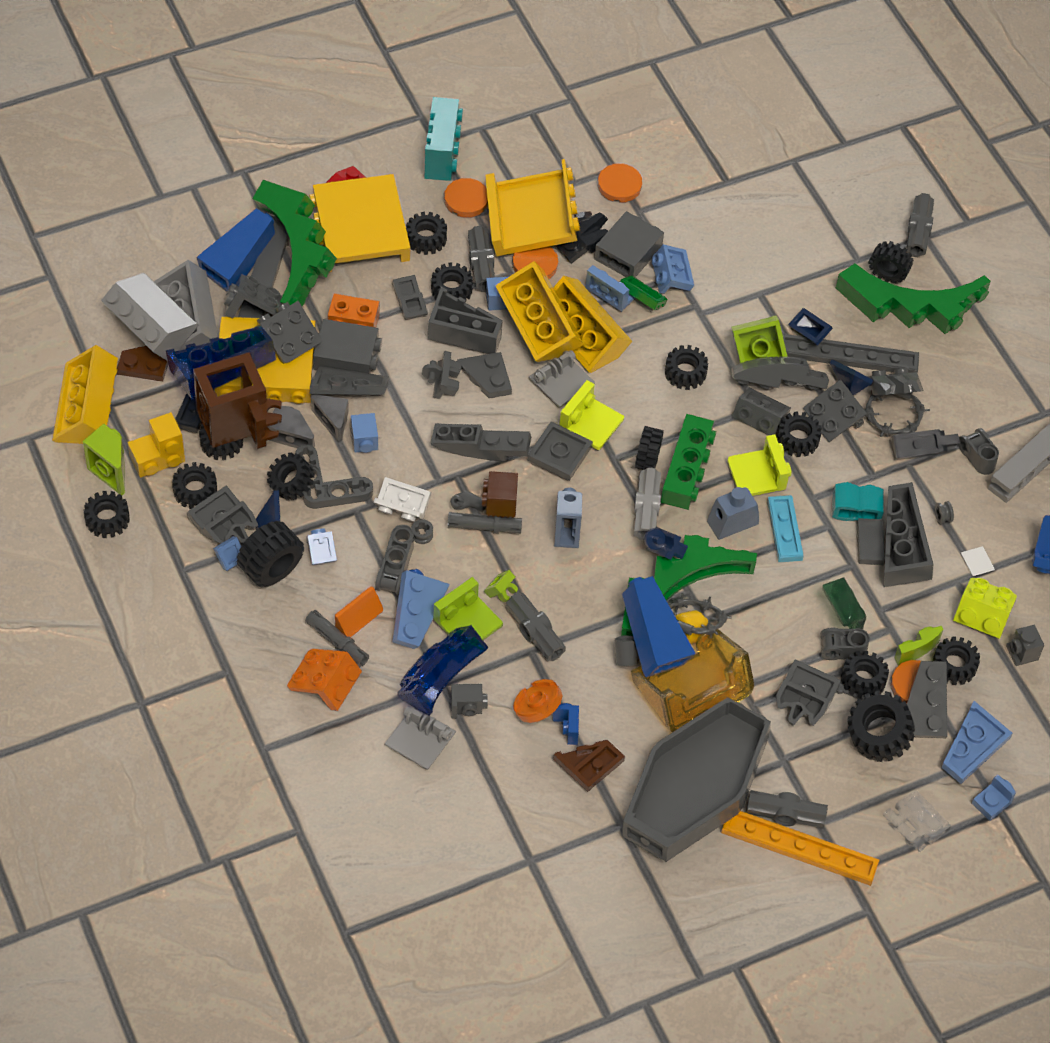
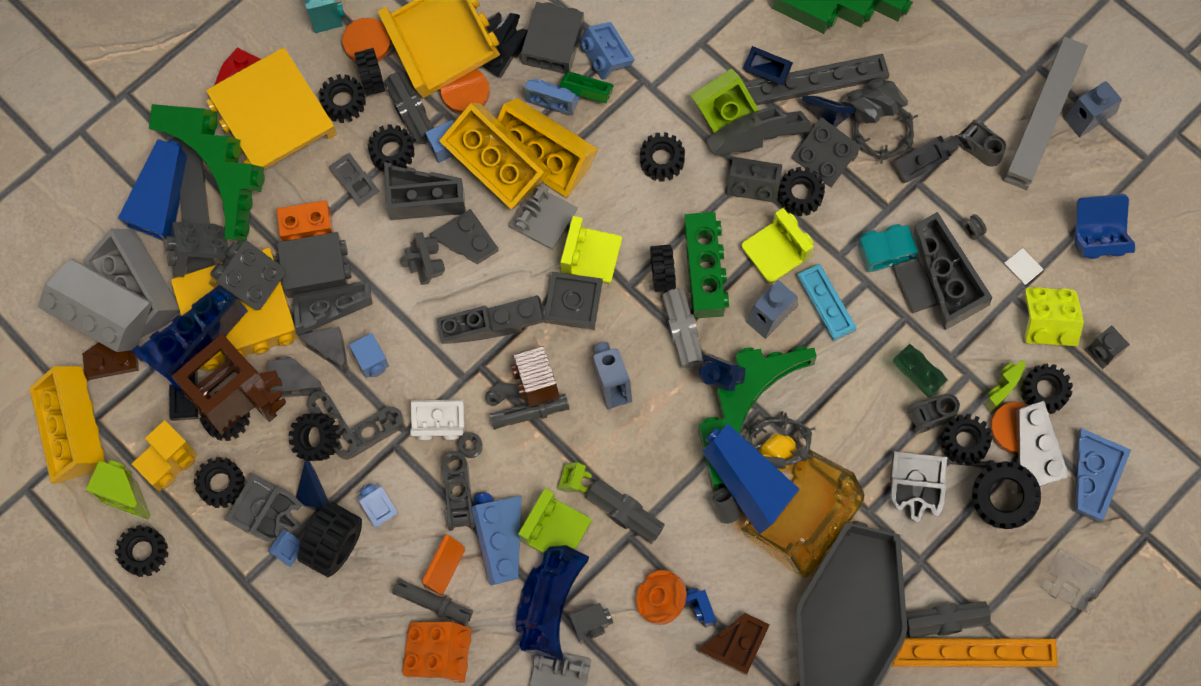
camera: 15 degrees left, 15 degrees up
(458, 218) = (369, 72): none -> black tyre
(994, 798) = (1138, 526): medium blue bracket -> none

